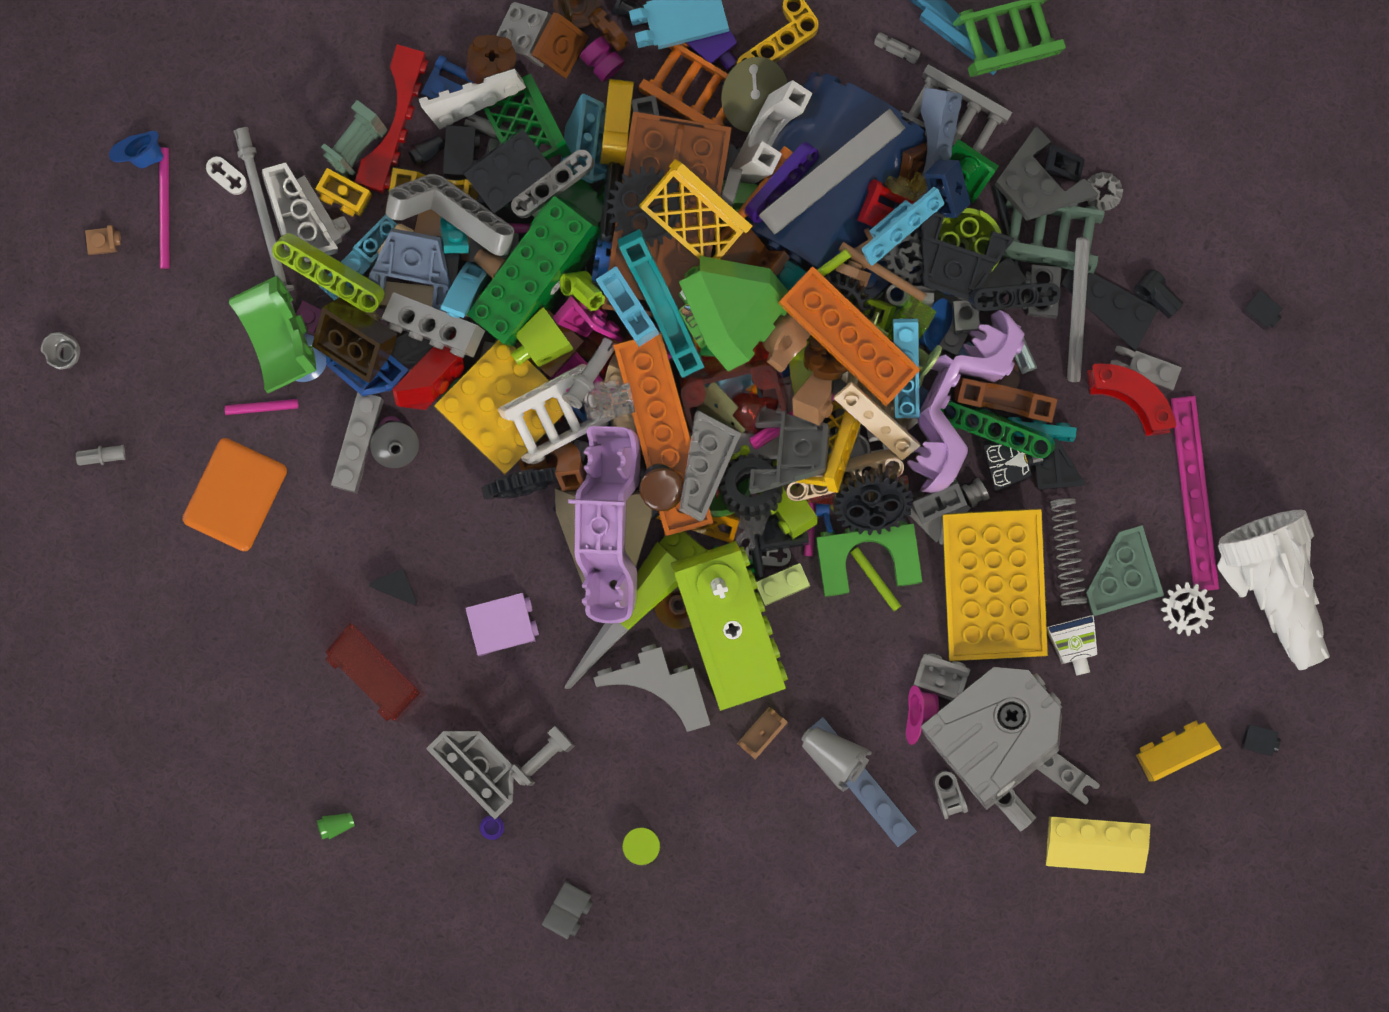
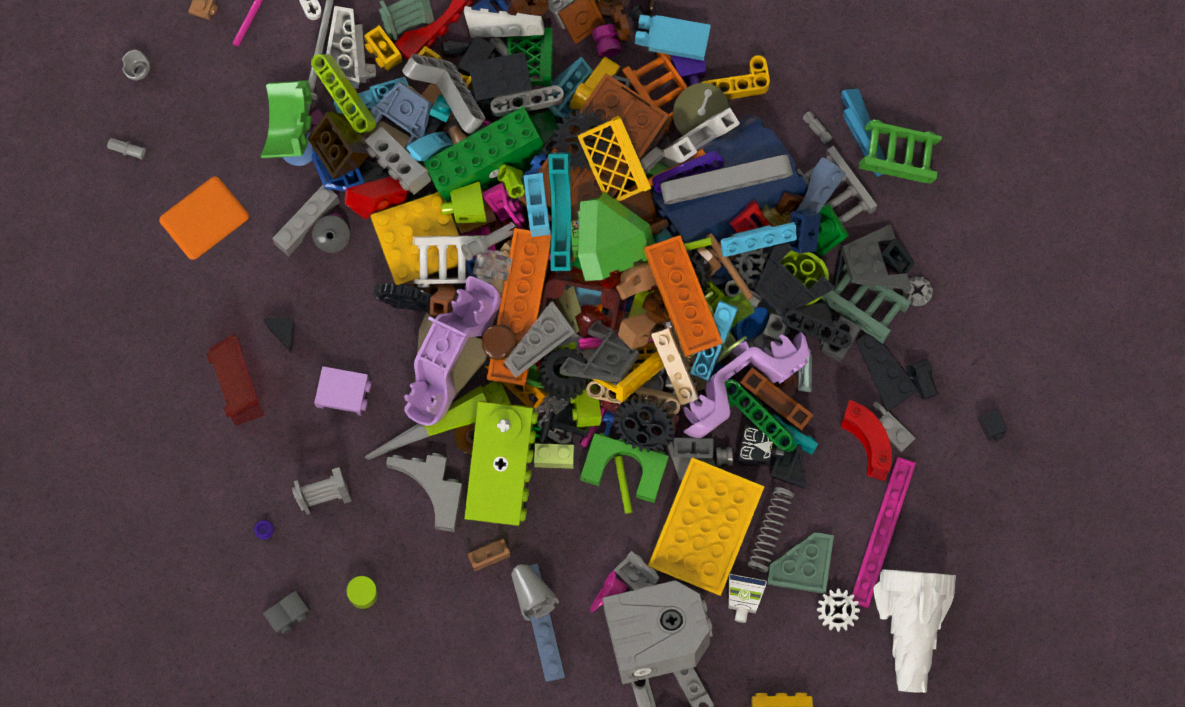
camera: 25 degrees right, 10 degrees down
(261, 406) = (253, 167): dark pink piece -> none
(334, 825) = (154, 475): bright green cone -> none
(476, 767) = (273, 479): light grey wedge -> none
(949, 796) = (601, 662): light grey piece -> none
(1078, 309) = (858, 361): light grey axle -> none

